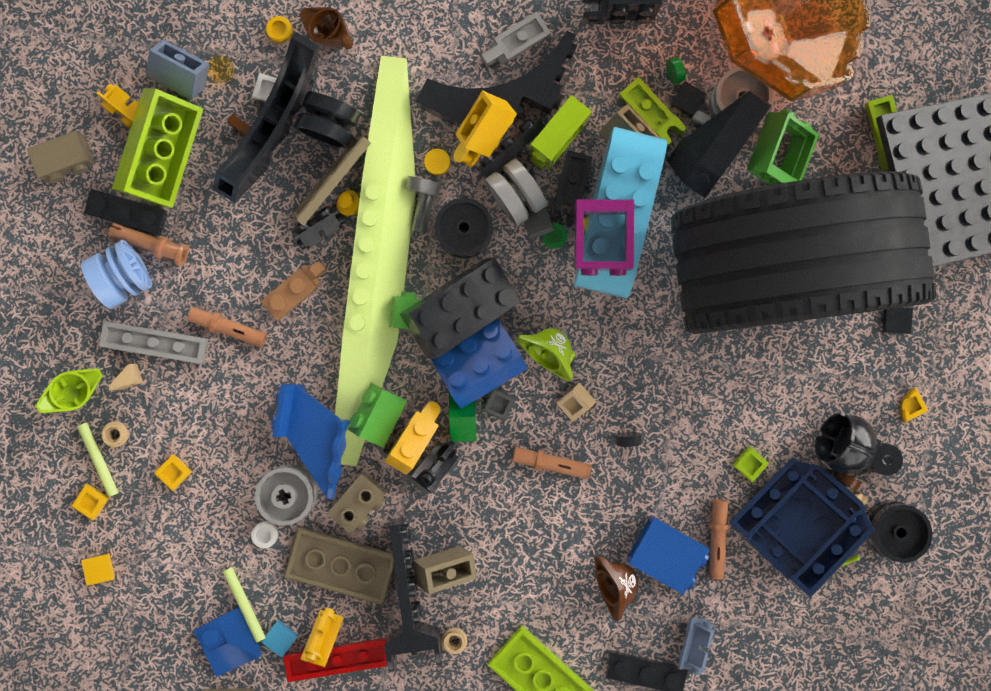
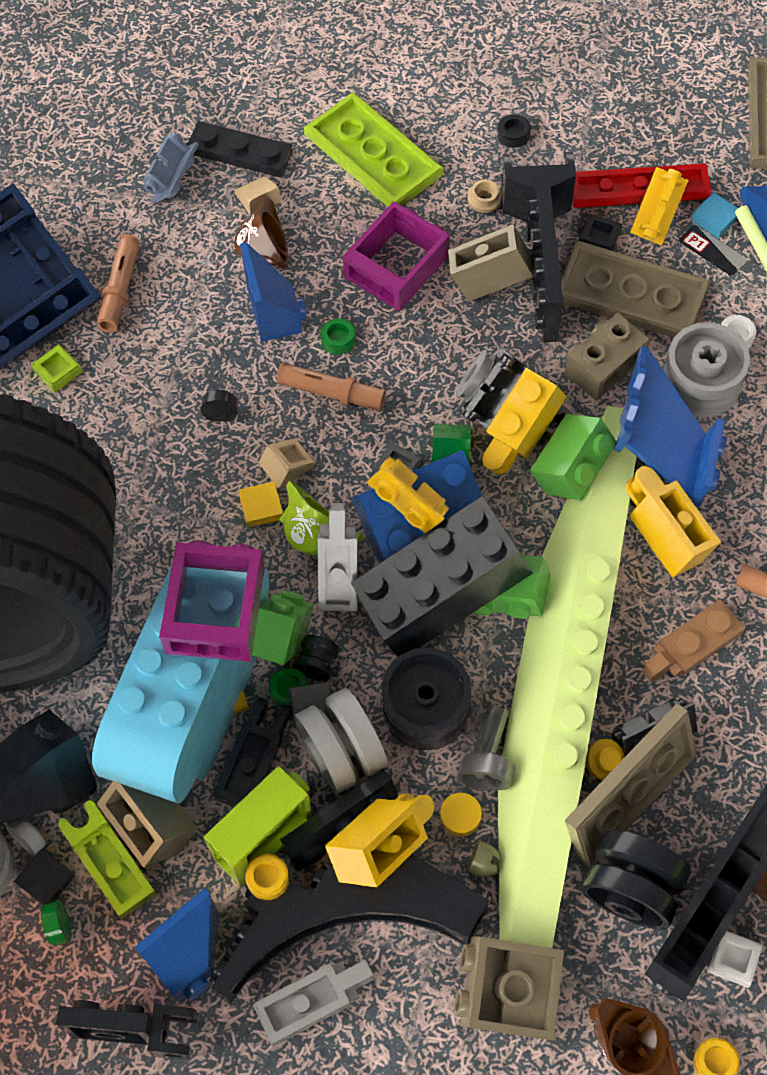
camera: 170 degrees left, 25 degrees down
(282, 608) = (712, 250): none -> sticker
(310, 368) = (669, 522): none -> yellow brick
(366, 614) = (601, 232): none -> black tile
(400, 54) = (510, 987): none -> dark tan plate
(422, 133) = (481, 860): none -> olive hinge
(449, 475) = (475, 376): none -> light grey piece
(477, 350) = (421, 507): none -> yellow hinge
(524, 552) = (379, 280): none -> magenta window
(531, 318) = (337, 562): none -> light grey hinge
(538, 254) = (316, 657): none -> black wheel
(550, 100) = (267, 876): none -> yellow tile
(551, 508) = (338, 336): none -> green tile
(561, 268) = (281, 626): none -> bright green brick
(589, 367) = (260, 504): none -> yellow tile
(595, 55) = (184, 947): none -> blue slope
(603, 528) = (272, 297): none -> blue slope
(626, 630) = (256, 191): none -> tan slope
(668, 555) = (190, 266): blue panel -> none

